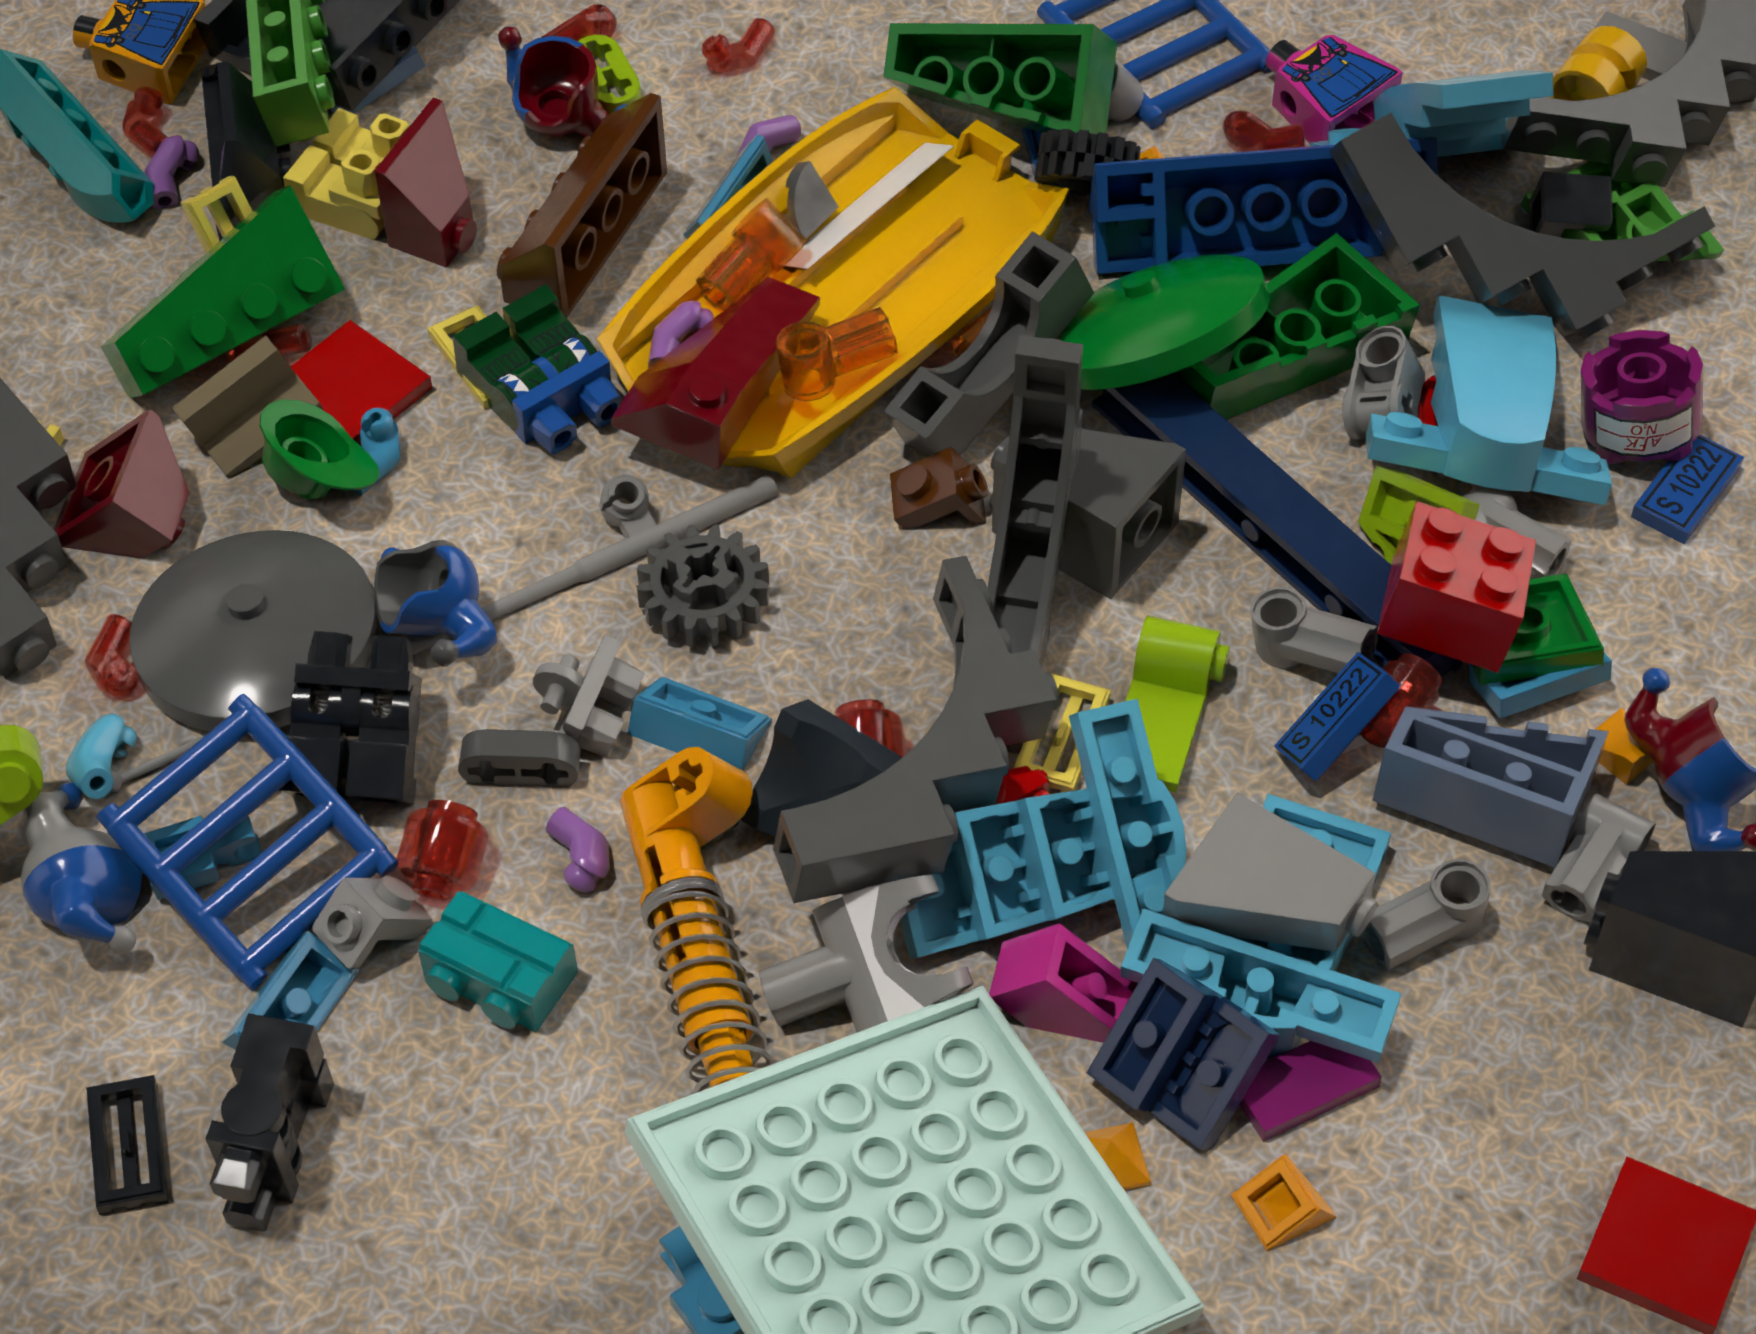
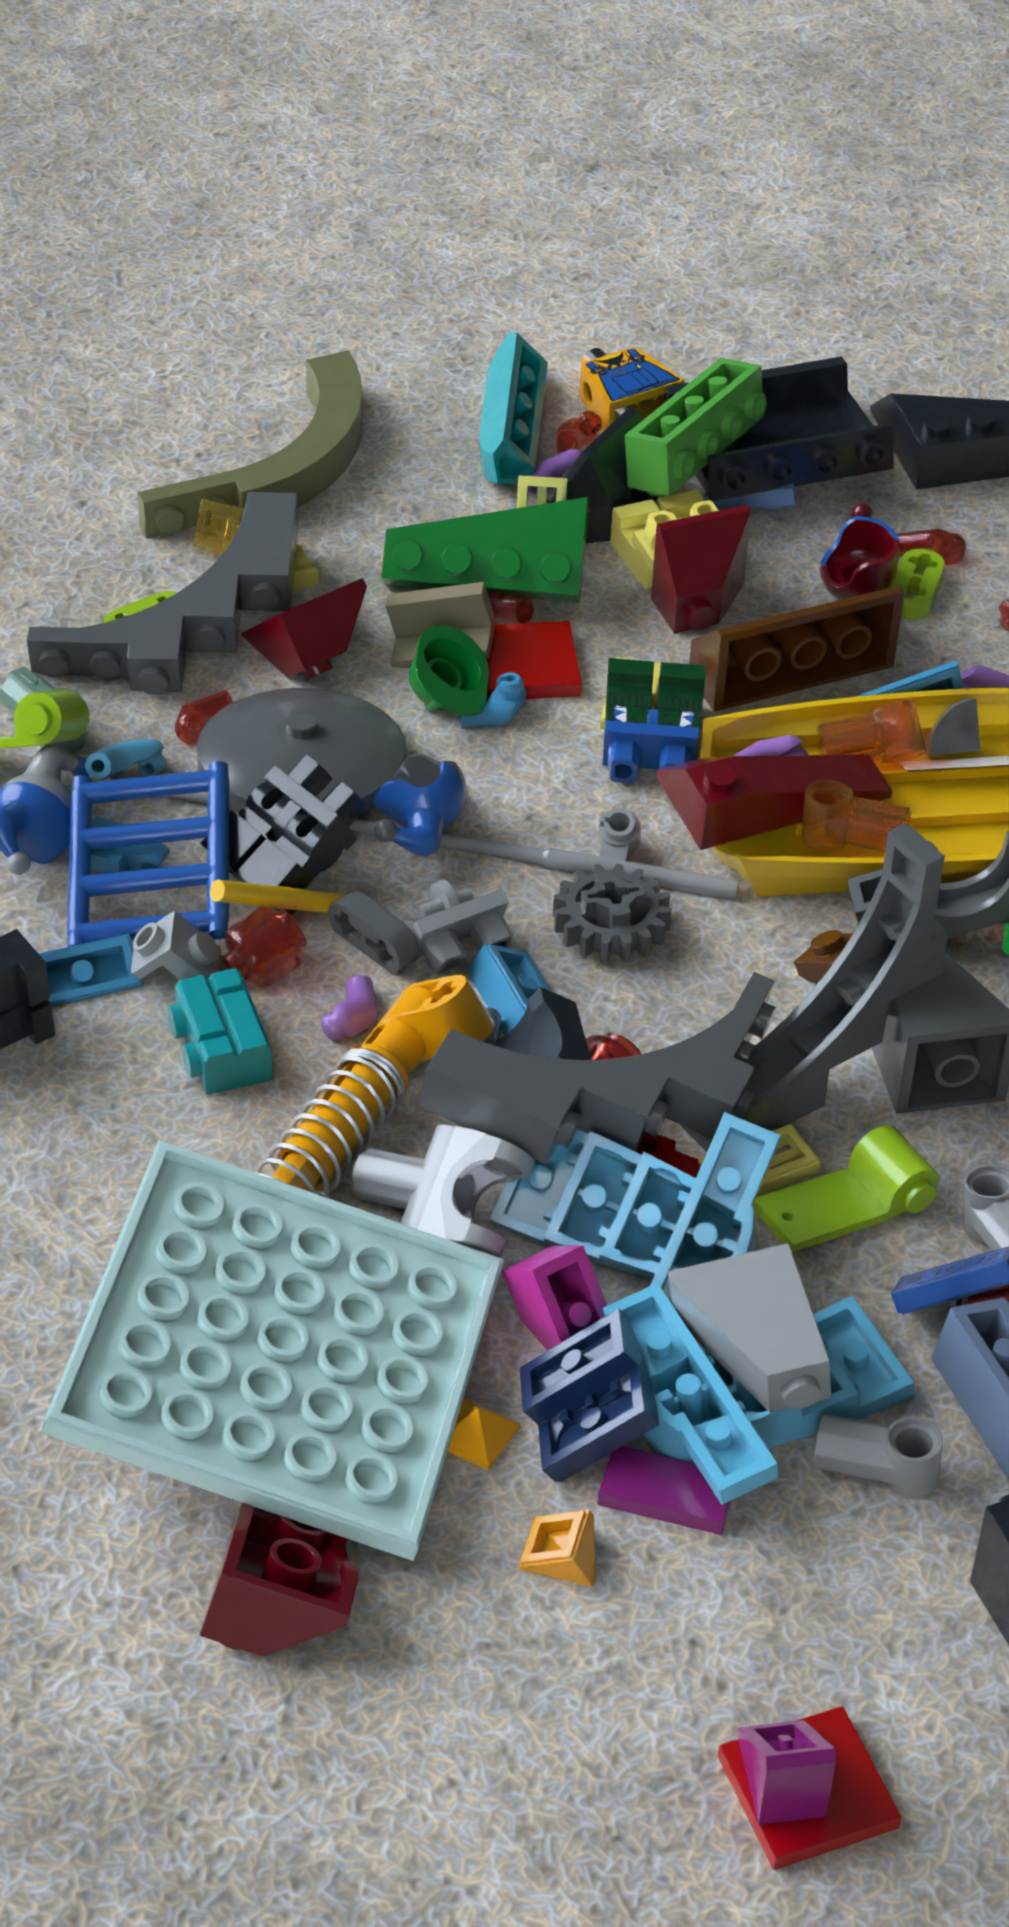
camera: 40 degrees right, 10 degrees down
(414, 792) = (272, 896): none -> yellow bar
(1659, 1242) = (787, 1770): none -> magenta slope

